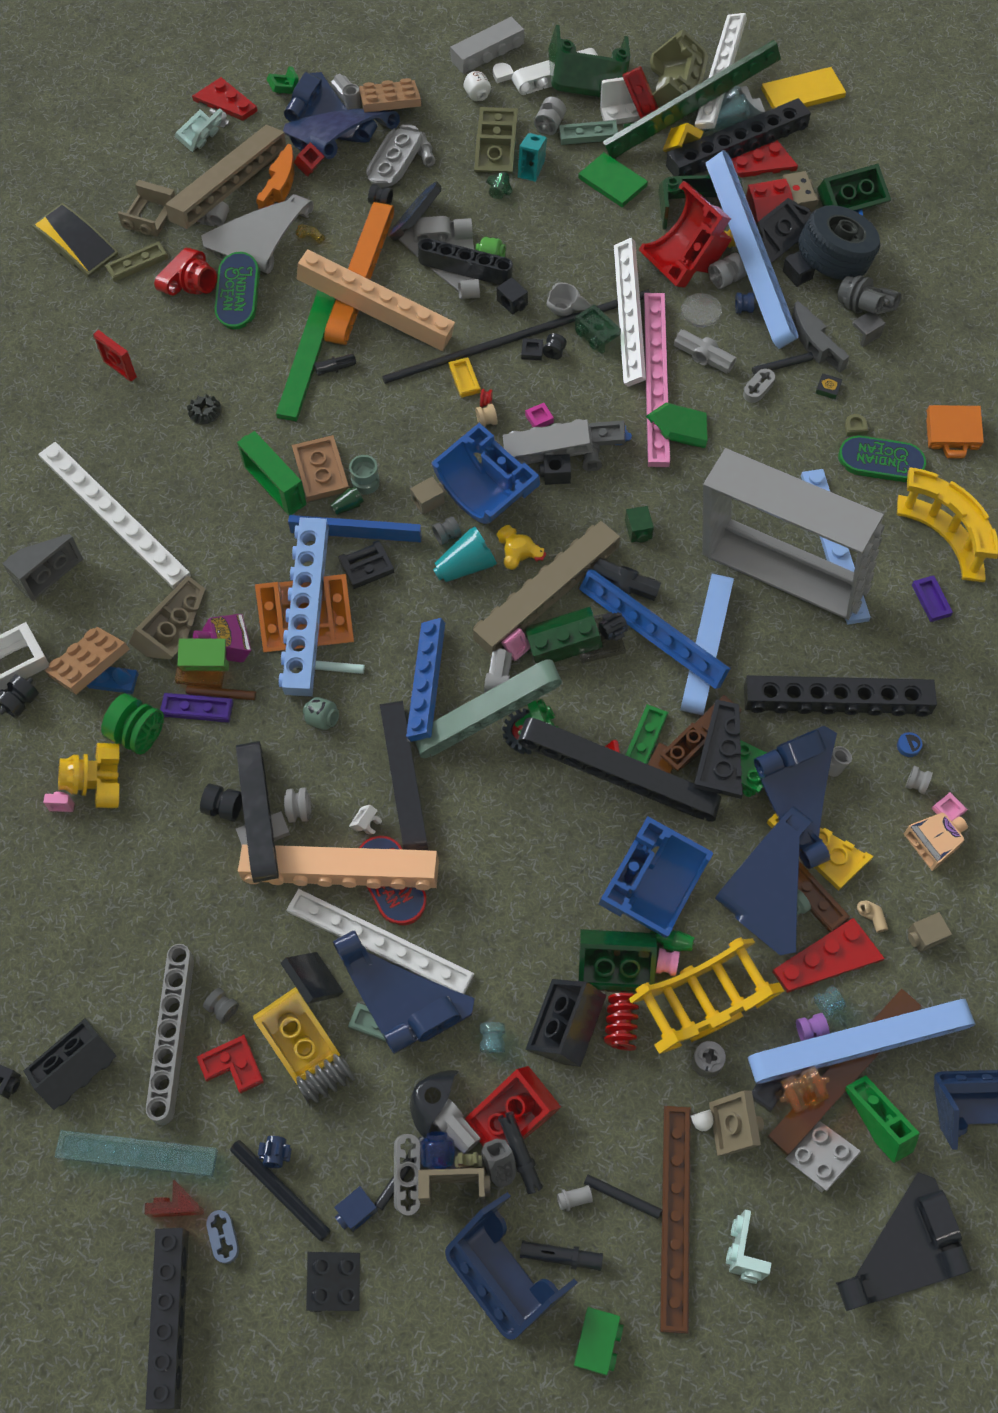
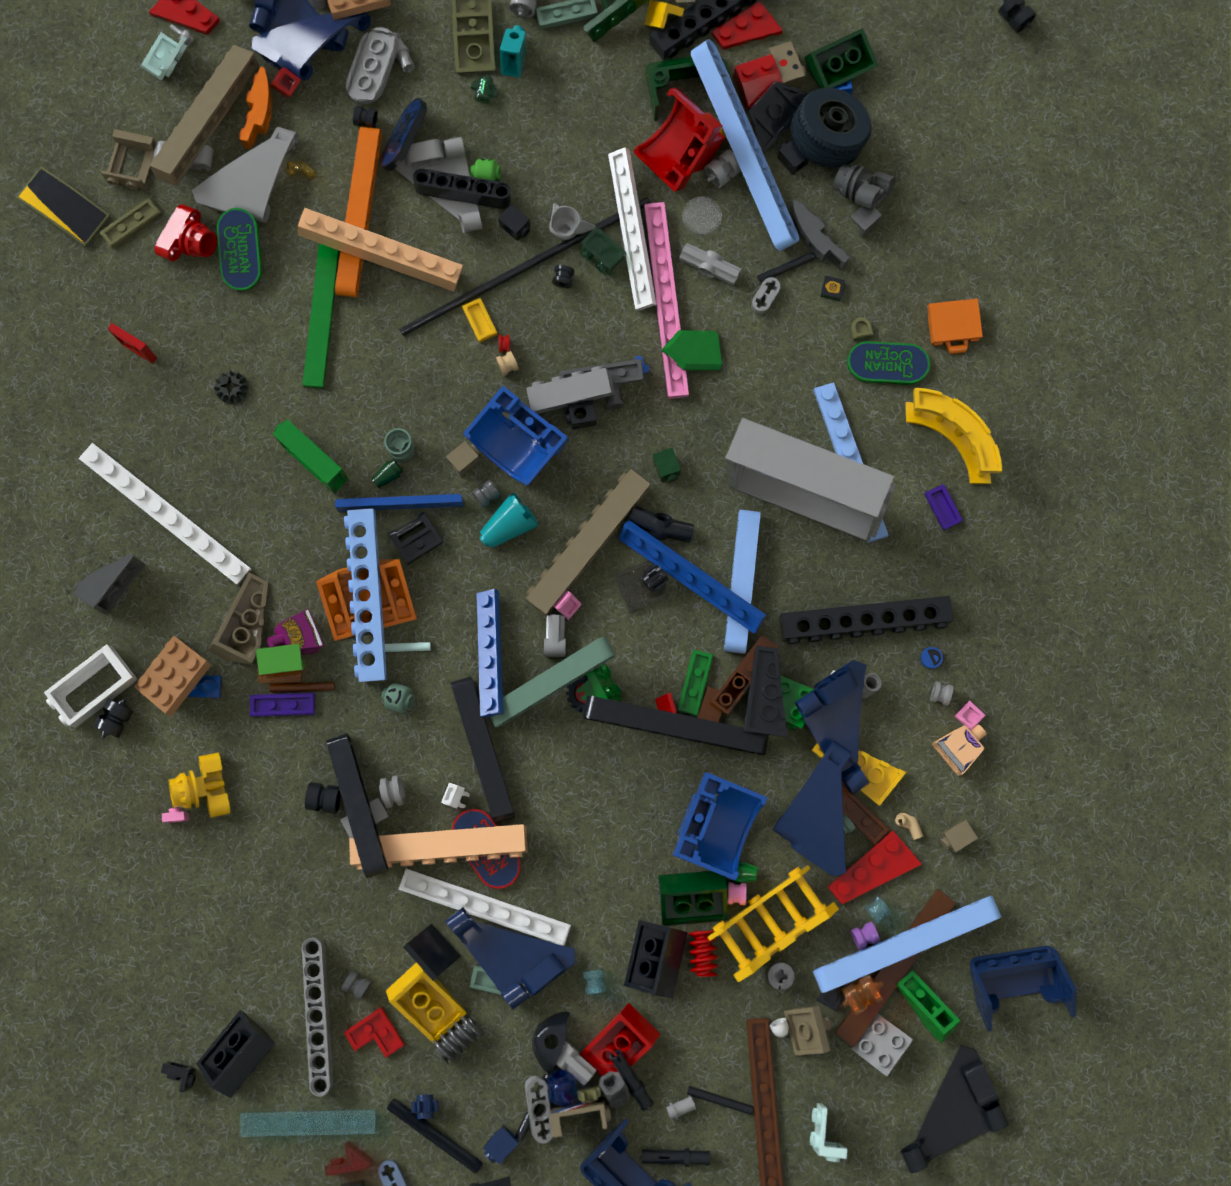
camera: 10 degrees left, 15 degrees up
(132, 723) = (227, 734): green wheel -> none
(320, 468) = (355, 440): medium nougat plate -> none
(334, 364) = (350, 321): black axle -> none
(518, 547) = (556, 504): yellow animal -> none
(532, 349) = (541, 280): black tile -> none
(539, 416) = (558, 357): dark pink plate -> none
(564, 636) = (609, 591): dark green slope -> none
(613, 179) = (598, 67): green tile -> none
(744, 302) = (743, 203): dark blue wheel -> none

